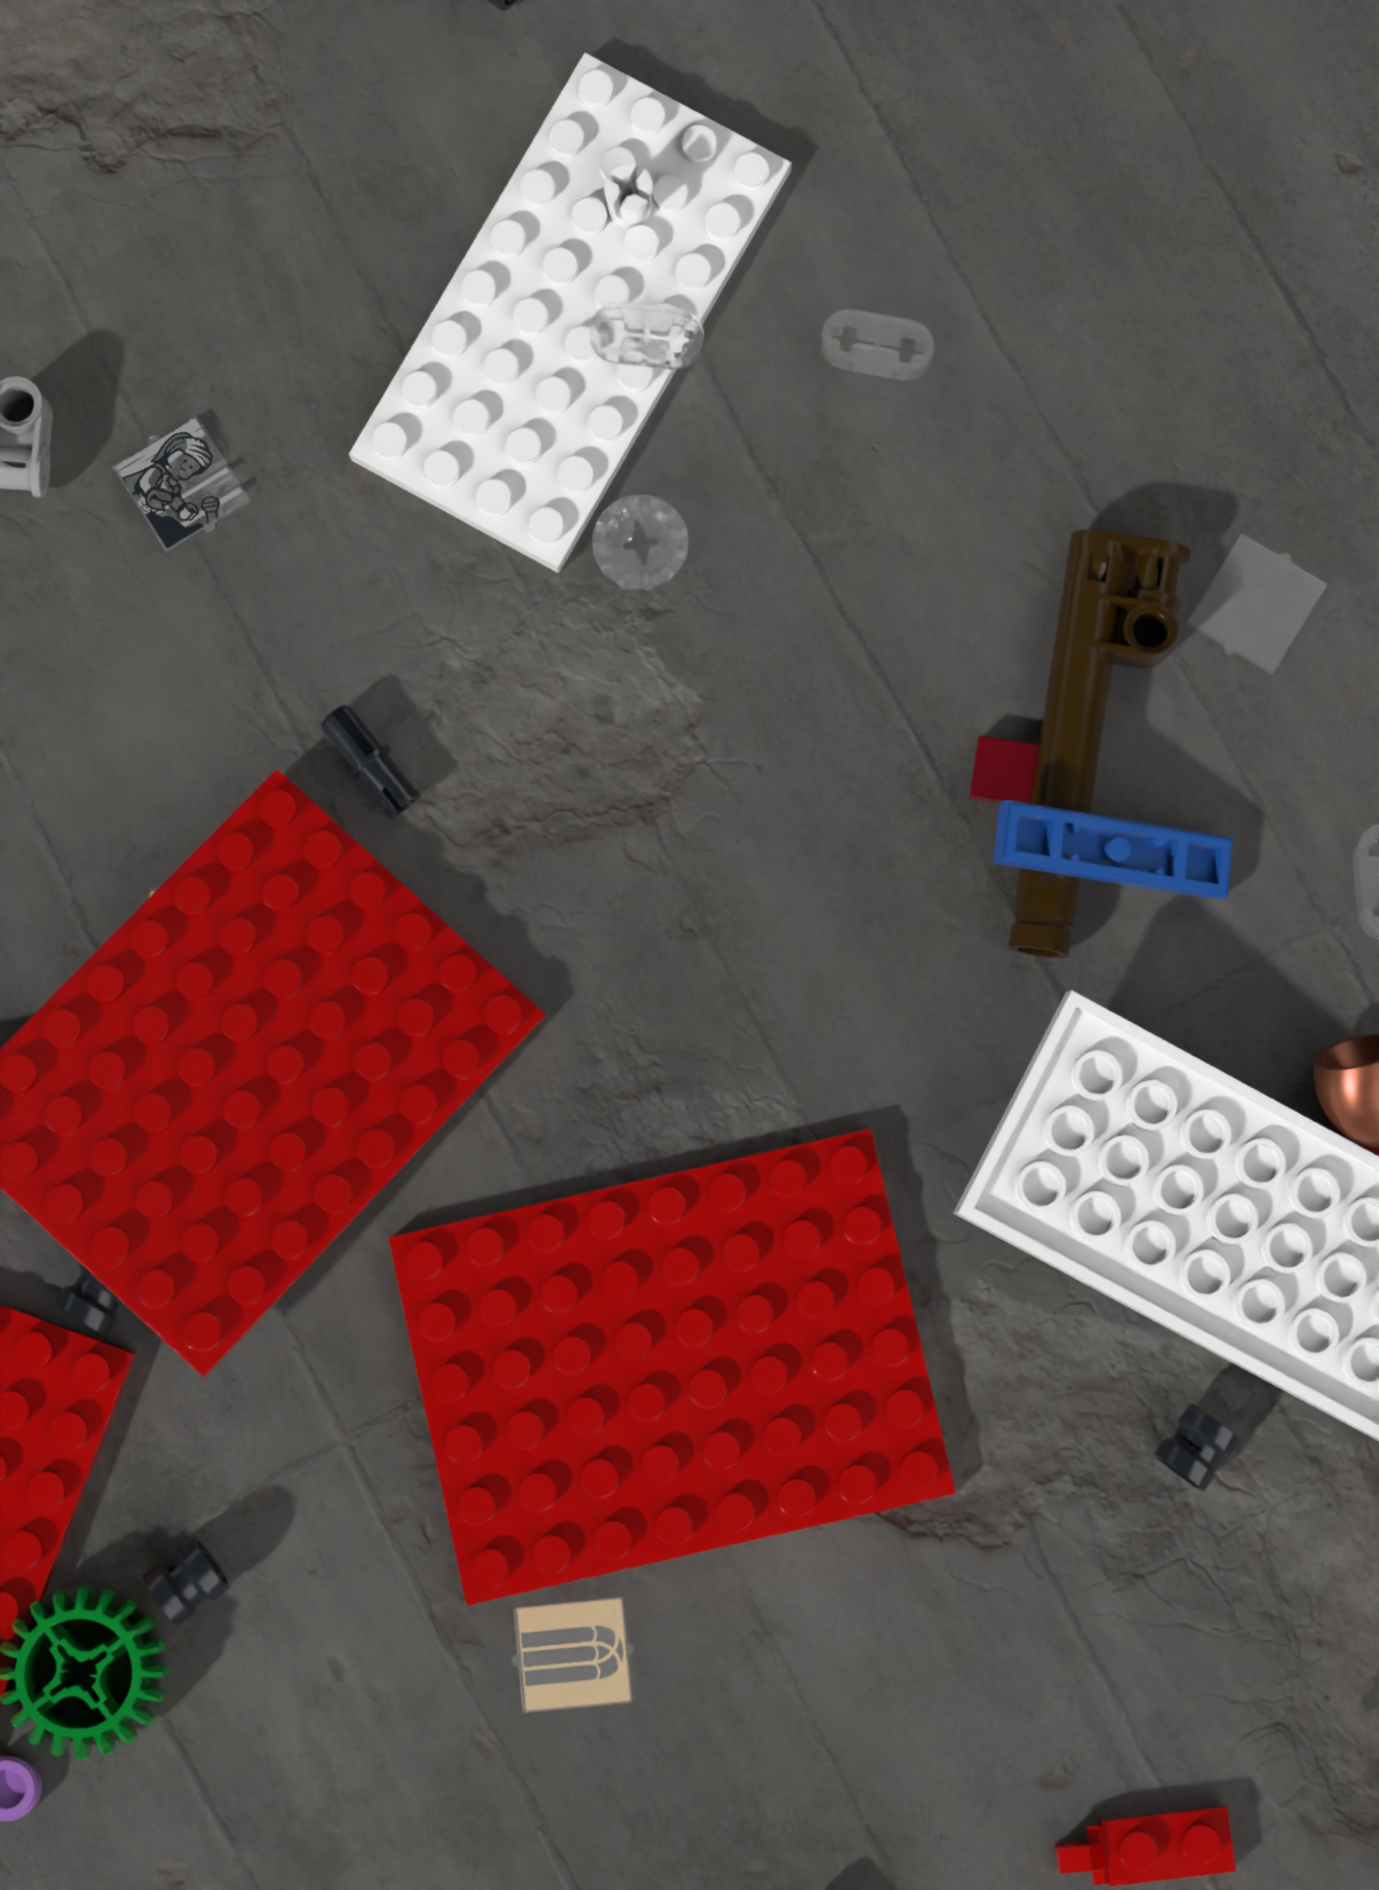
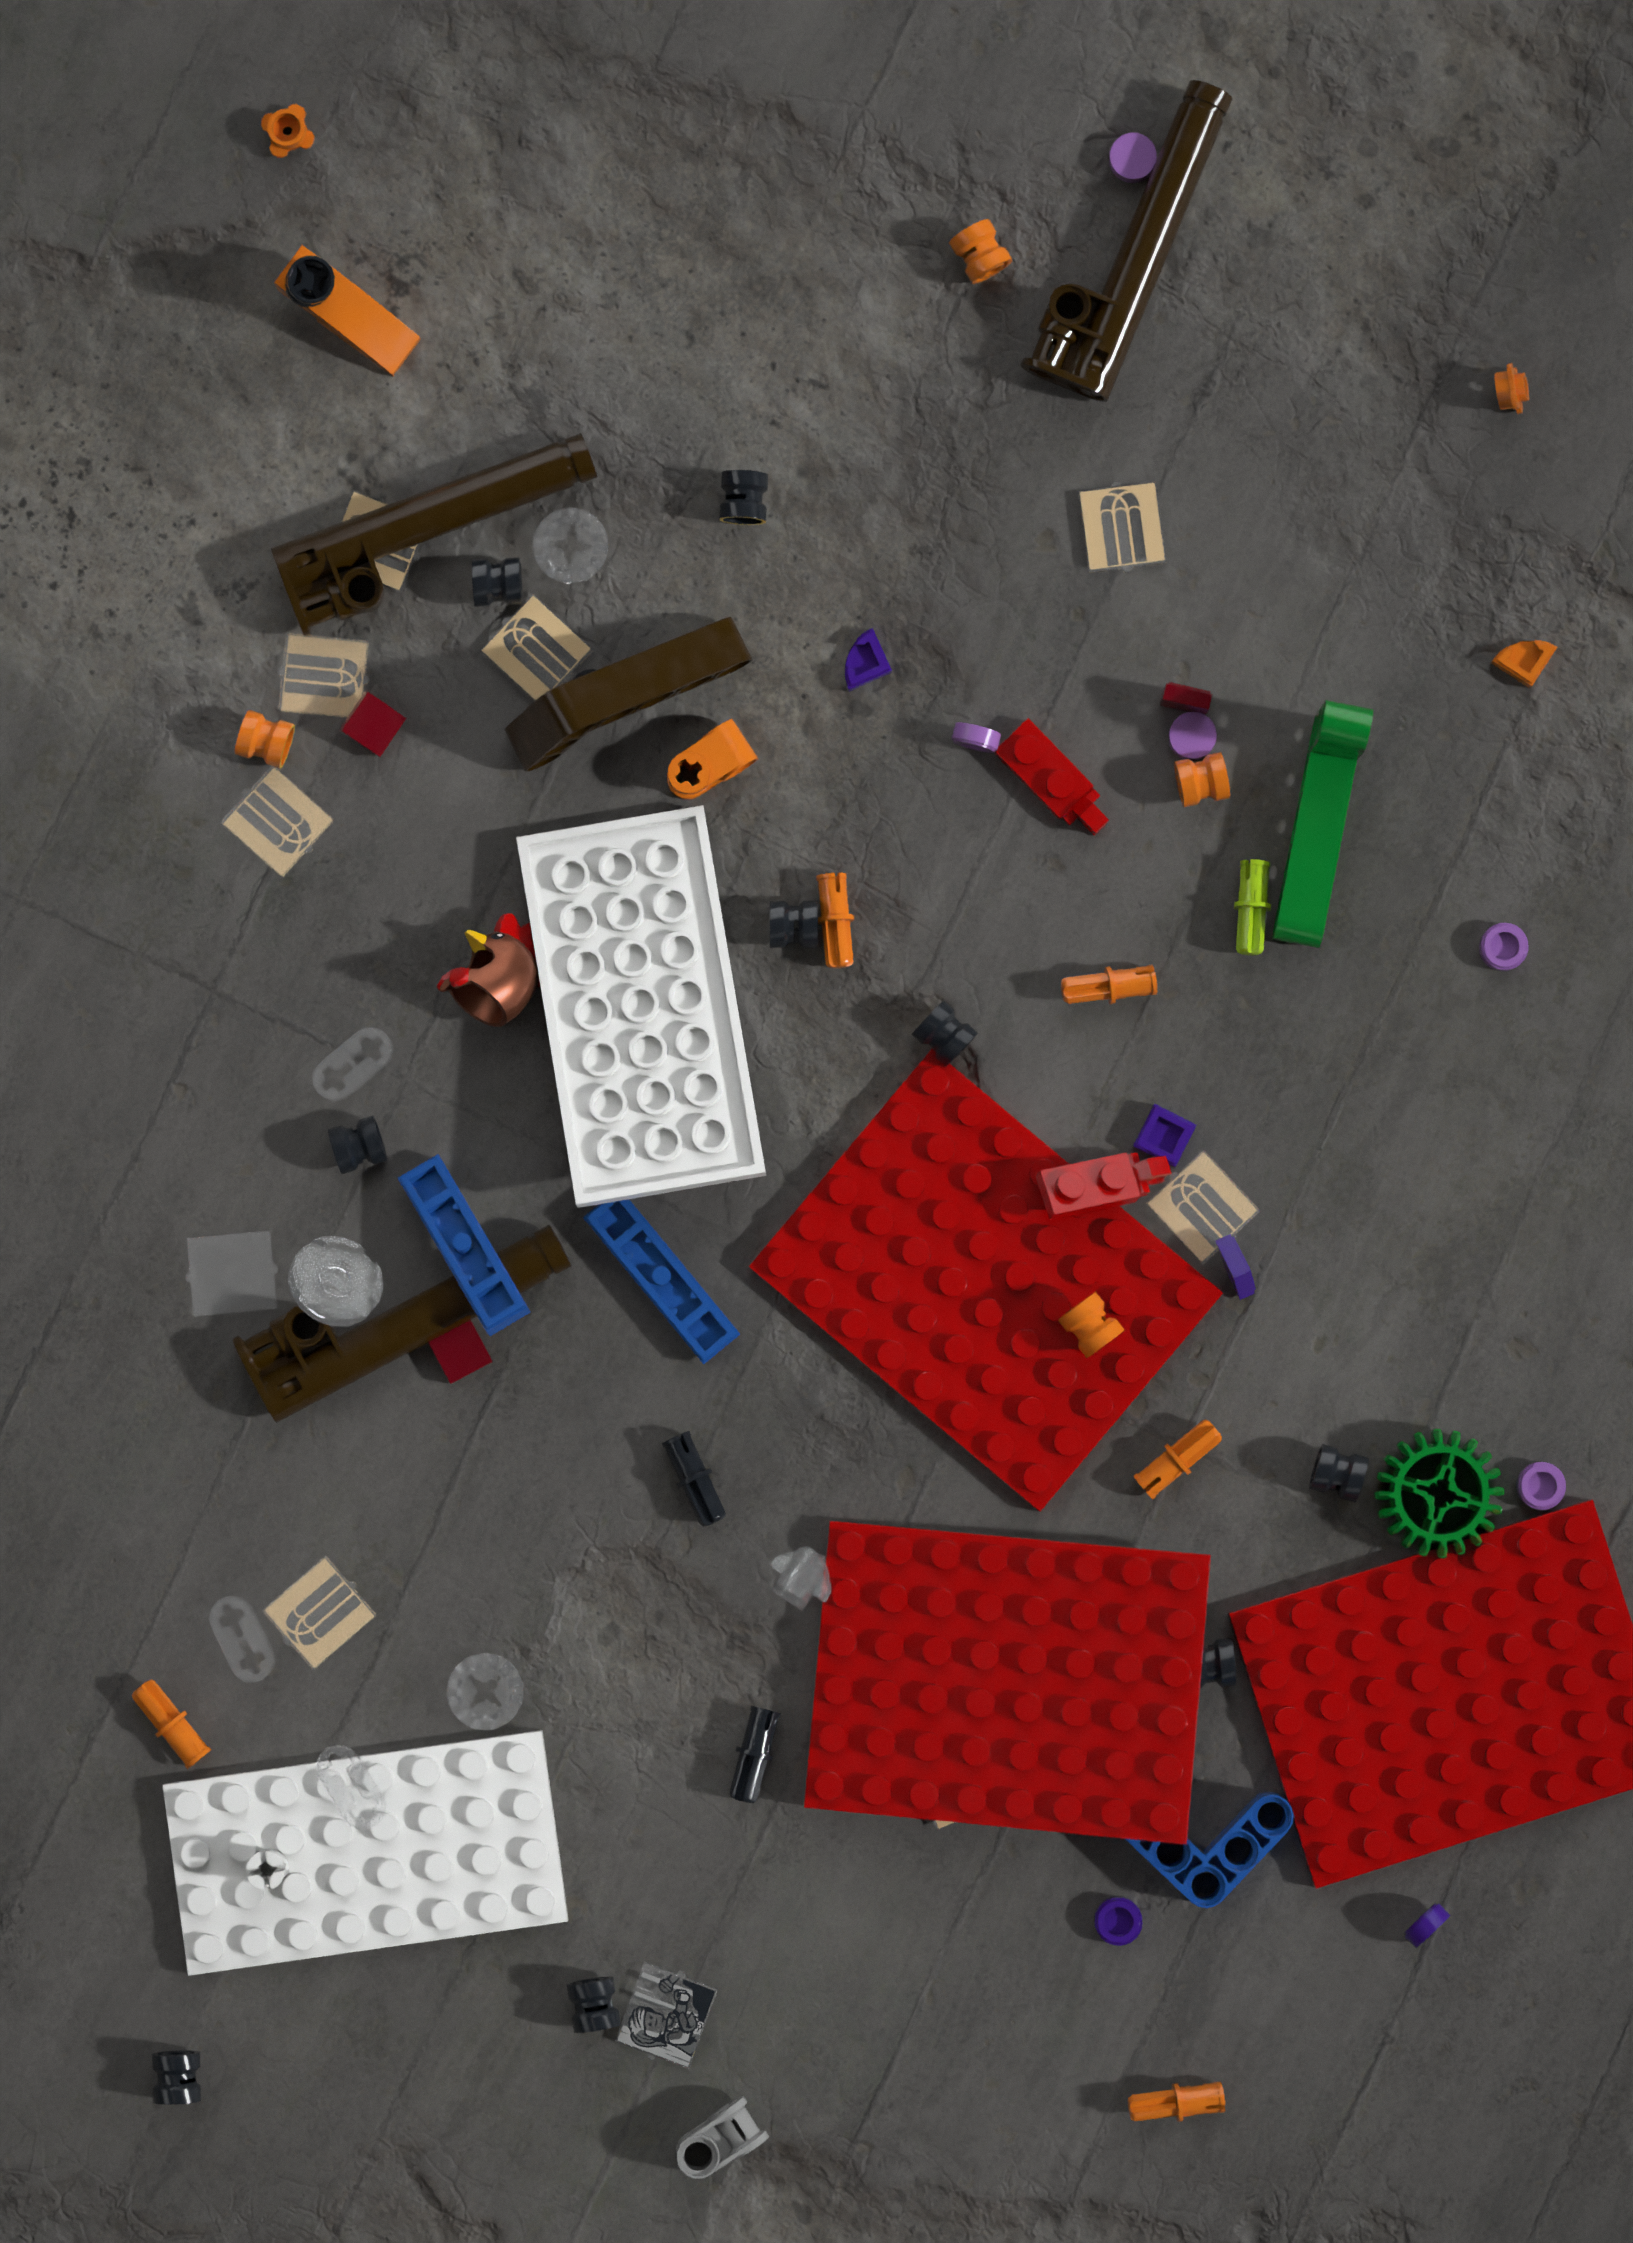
camera: 130 degrees left, 5 degrees up
(246, 417) = (593, 2004): none -> black wheel
(332, 1424) = (1178, 1458): none -> orange axle
(483, 1641) = (1236, 1266): none -> dark purple tile
(509, 943) = (802, 1576): none -> clear piece
(537, 1436) = (1091, 1325): none -> orange wheel
(678, 1671) = (1164, 1135): none -> dark purple tile
(680, 1561) = (1099, 1183): none -> red hinge
(693, 909) = (694, 1479): none -> black axle
(845, 440) = (319, 1613): none -> clear piece
(846, 214) = (170, 1723): none -> orange axle
(881, 1737) = (1110, 985): none -> orange axle
(925, 1031) = (662, 1277): none -> blue plate
(961, 1519) = (944, 1033): none -> black wheel
(1168, 1496) = (835, 920): none -> orange axle
(1172, 695) = (335, 1281): none -> clear tile
(1256, 1797) = (976, 737): none -> medium lavender tile
(1300, 816) = (354, 1146): none -> black wheel

